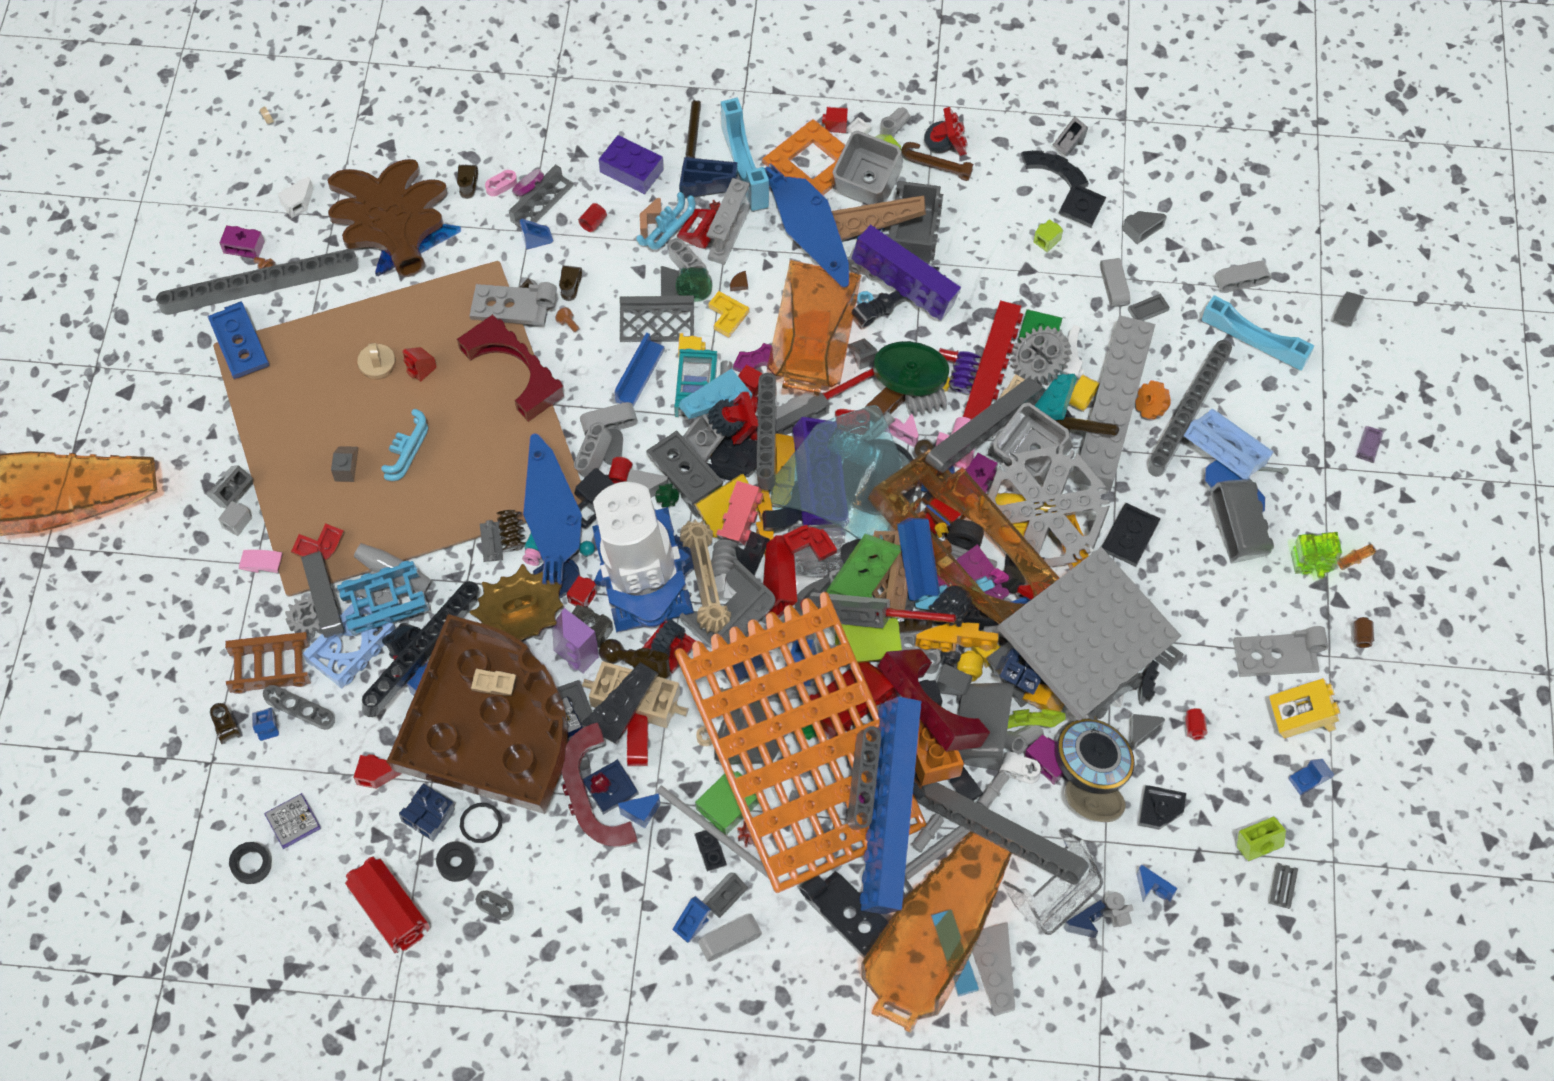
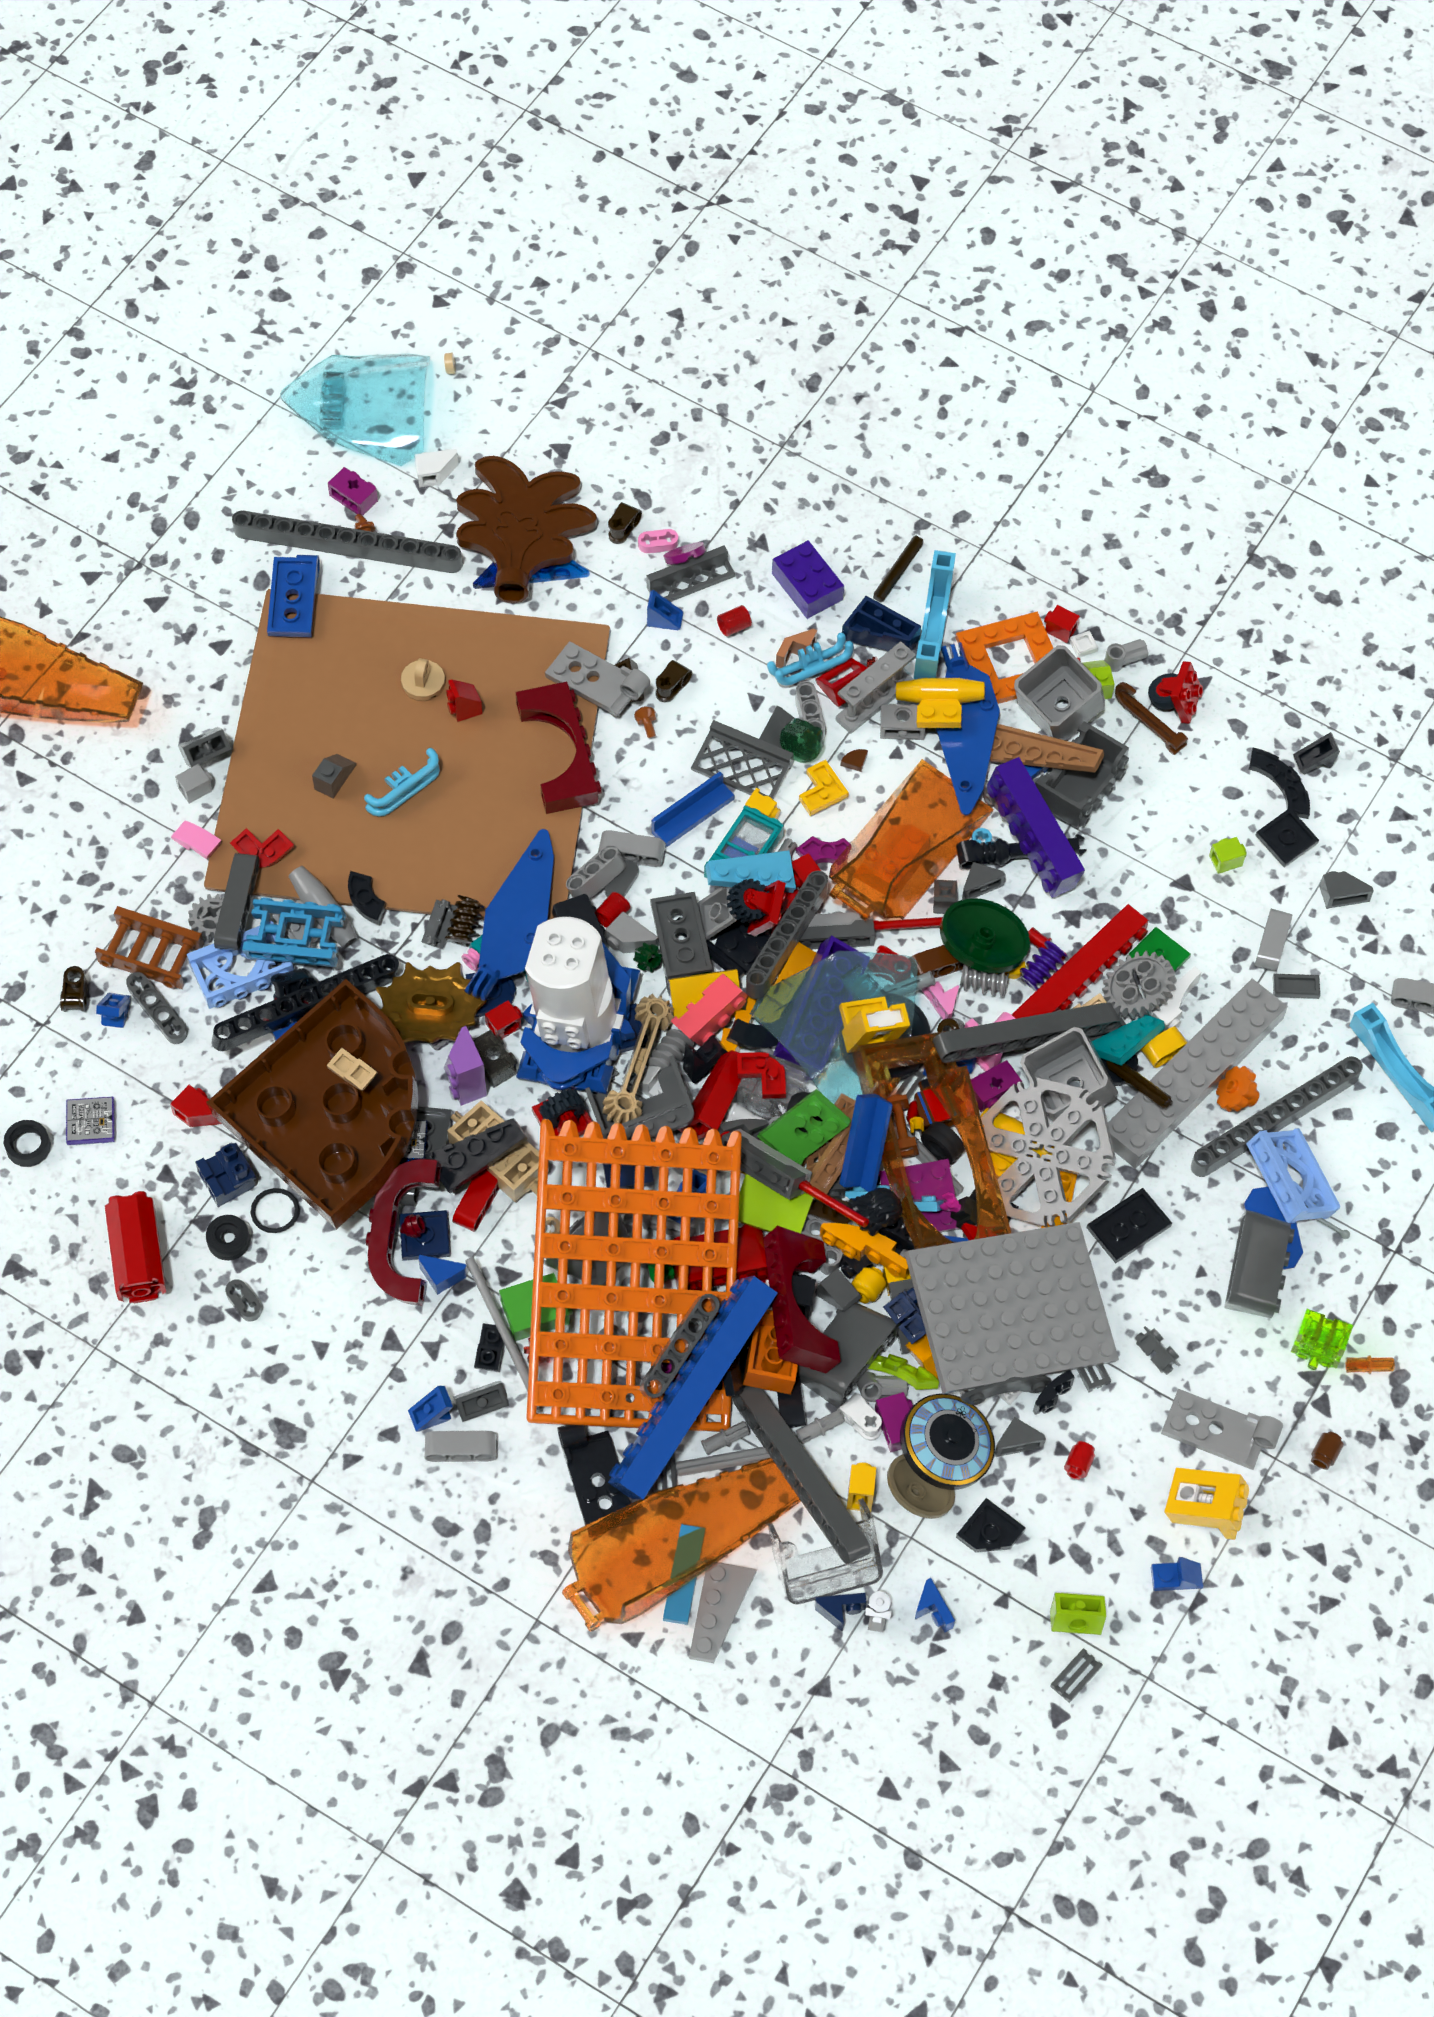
camera: 25 degrees right, 0 degrees up
(217, 170) = (365, 403): none -> clear light blue windscreen
(420, 547) = (363, 898): none -> black tile
(613, 652) = (502, 1097): dark brown beam -> none
(769, 239) = (893, 728): none -> light grey brick
(781, 210) = (940, 699): none -> yellow plate
(872, 467) = (872, 1022): none -> yellow brick
(883, 329) = (982, 880): none -> dark grey slope
(1052, 819) = (861, 1485): none -> yellow brick
(1197, 612) = (1152, 1342): none -> dark grey hinge

